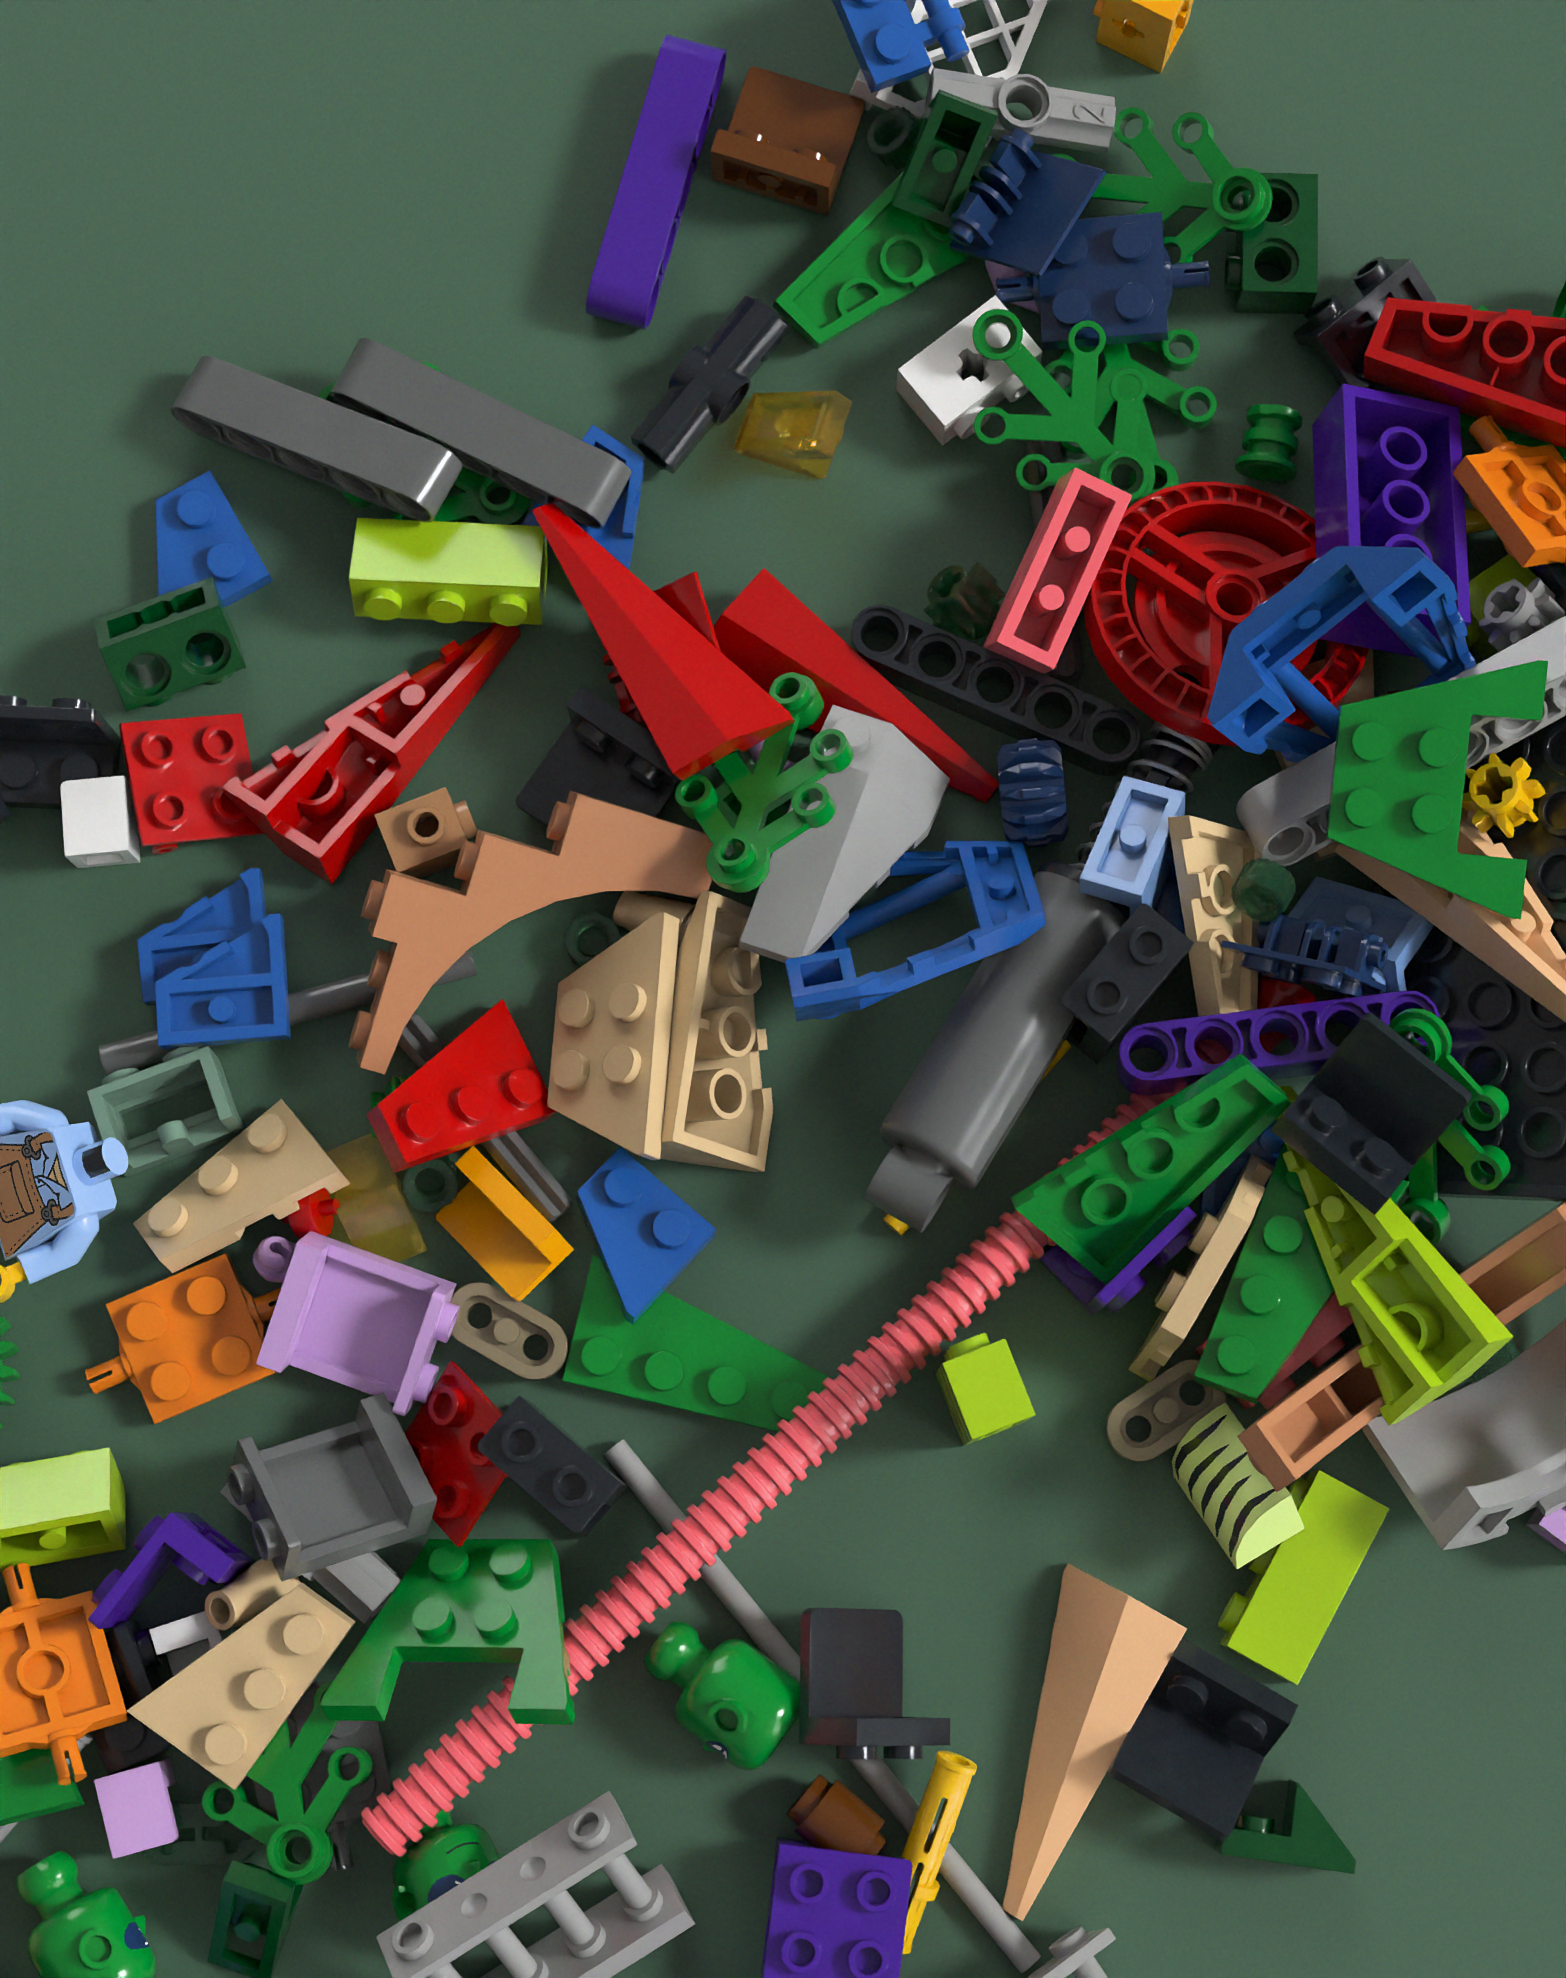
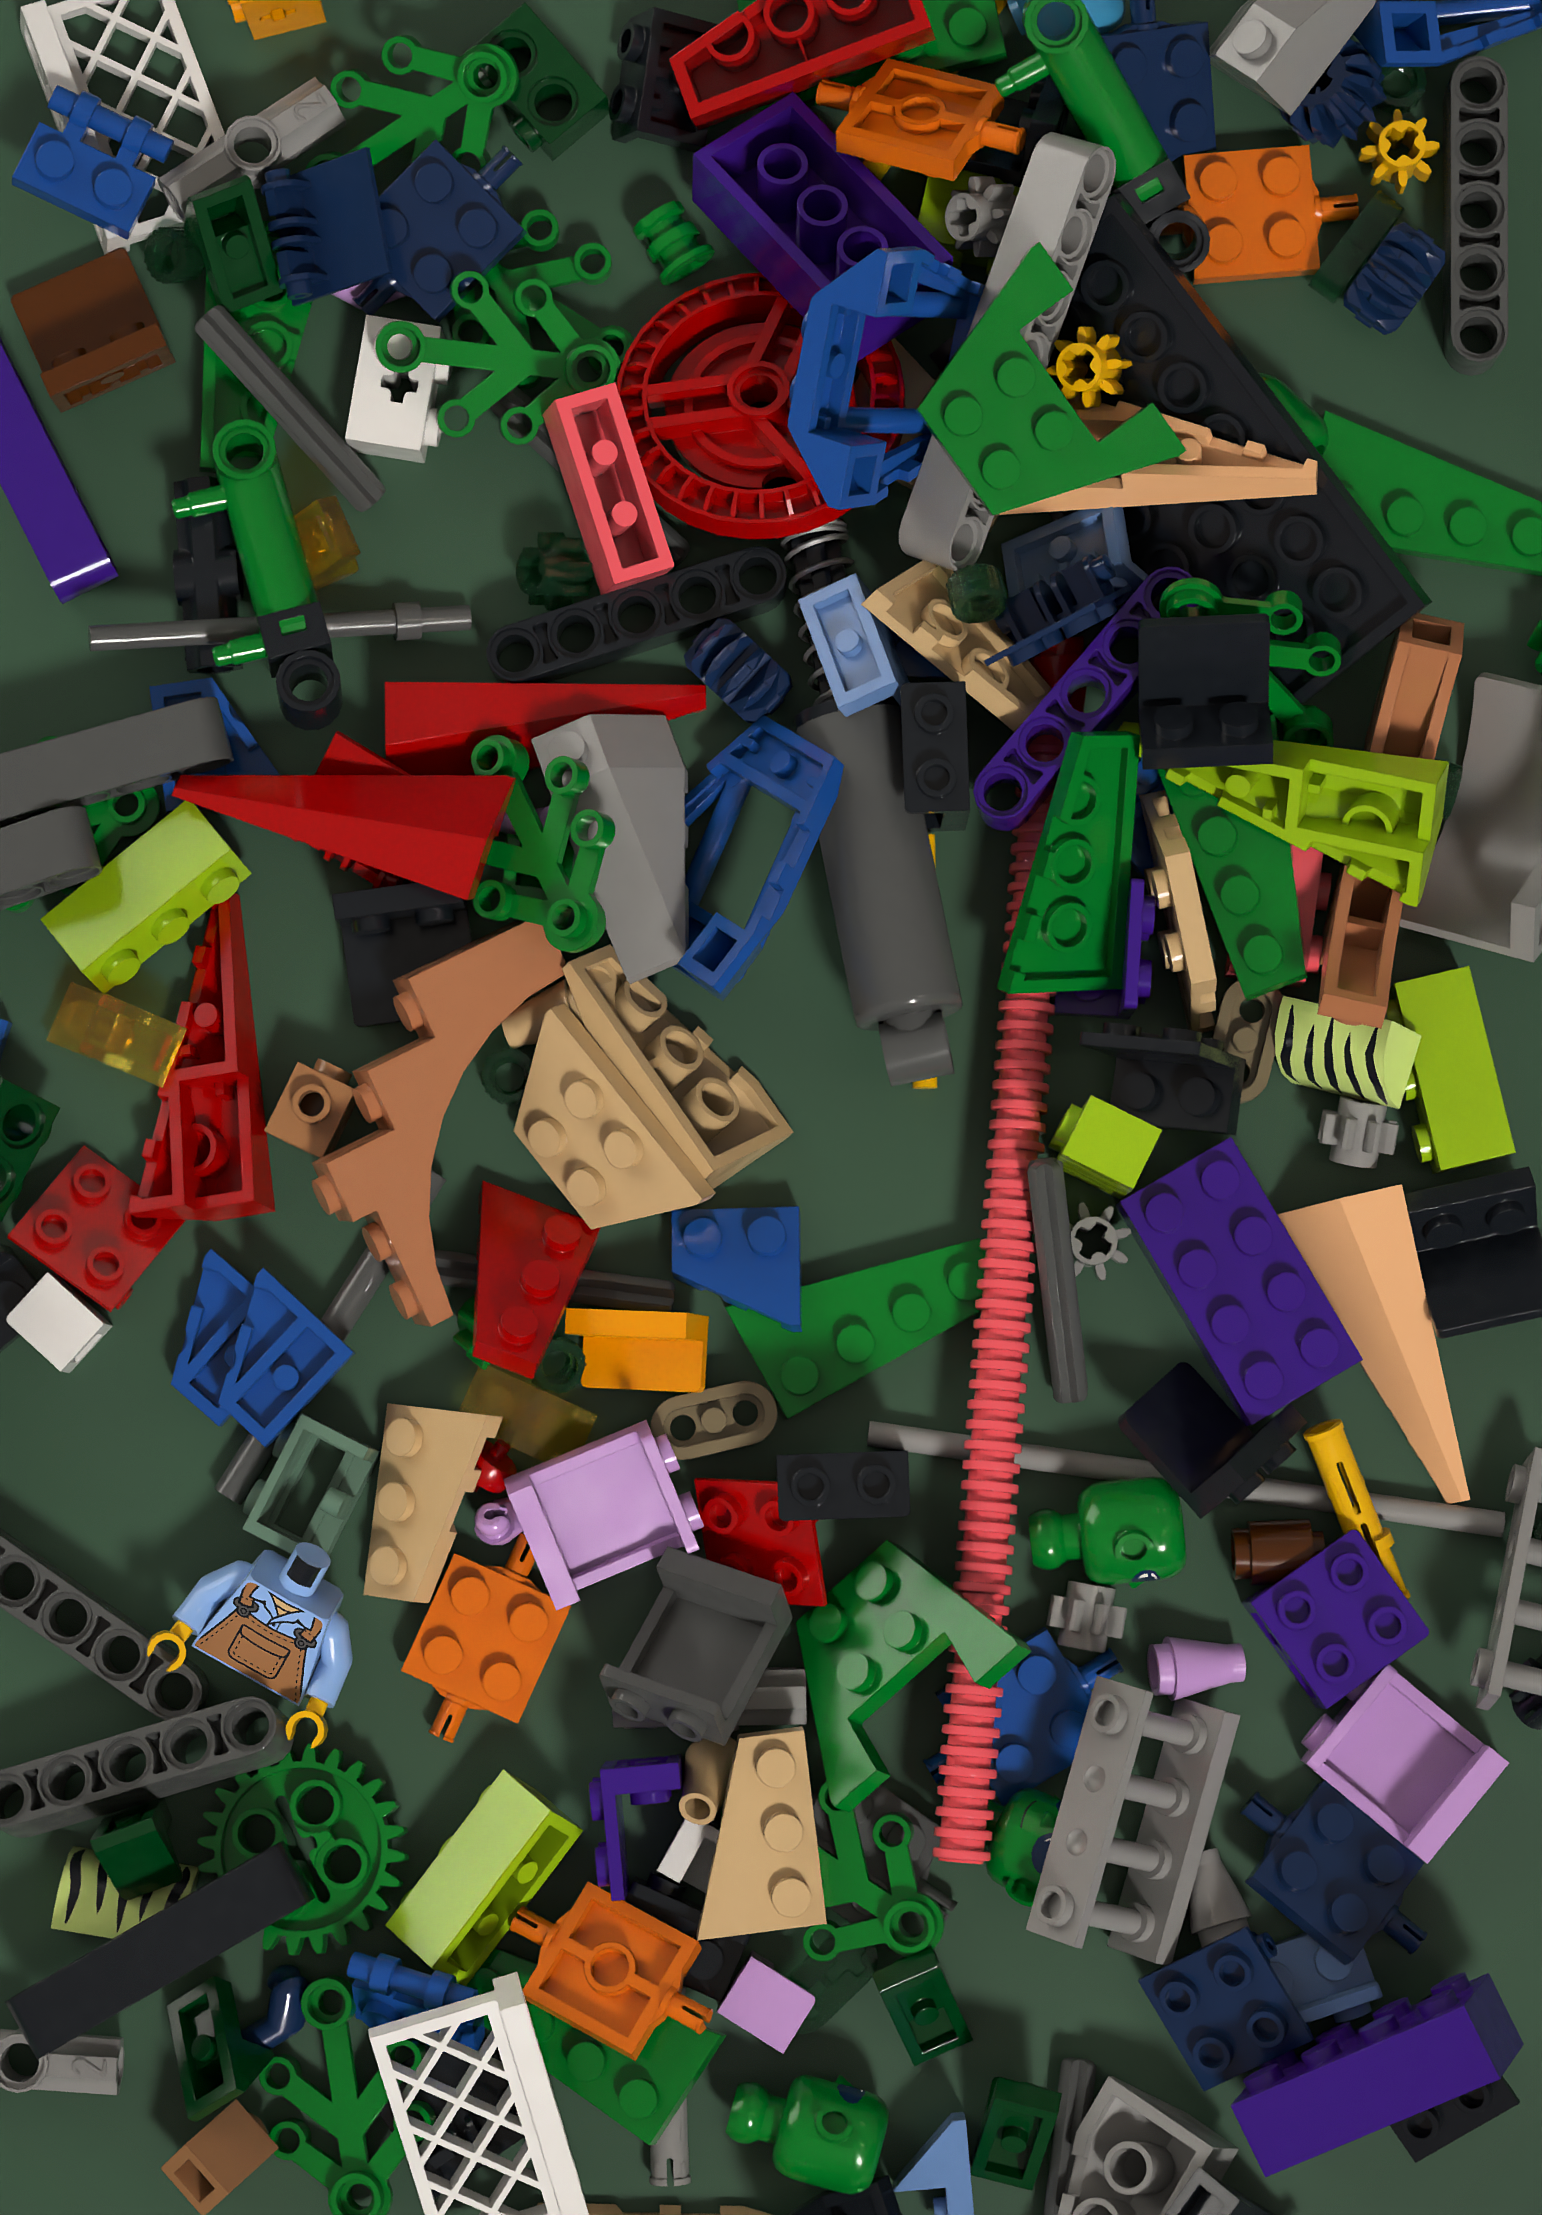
camera: 40 degrees left, 5 degrees up
(336, 652) = (116, 1034): none -> clear yellow slope
(544, 1778) = (1040, 1716): none -> blue plate
(647, 1738) = (1086, 1616): none -> light grey gear
(694, 1852) = (1193, 1666): none -> lavender cone
(740, 449) = (276, 574): none -> green piece
(821, 542) = (403, 620): none -> dark grey bar
(858, 1461) = (1057, 1280): none -> dark grey axle
(878, 315) = (290, 408): none -> dark grey axle
(919, 1439) = (1109, 1238): none -> light grey gear
(995, 1590) = (1238, 1282): none -> dark purple brick
(1084, 1387) = (1172, 1077): none -> black bracket
(1189, 1559) = (1358, 1132): none -> light grey gear

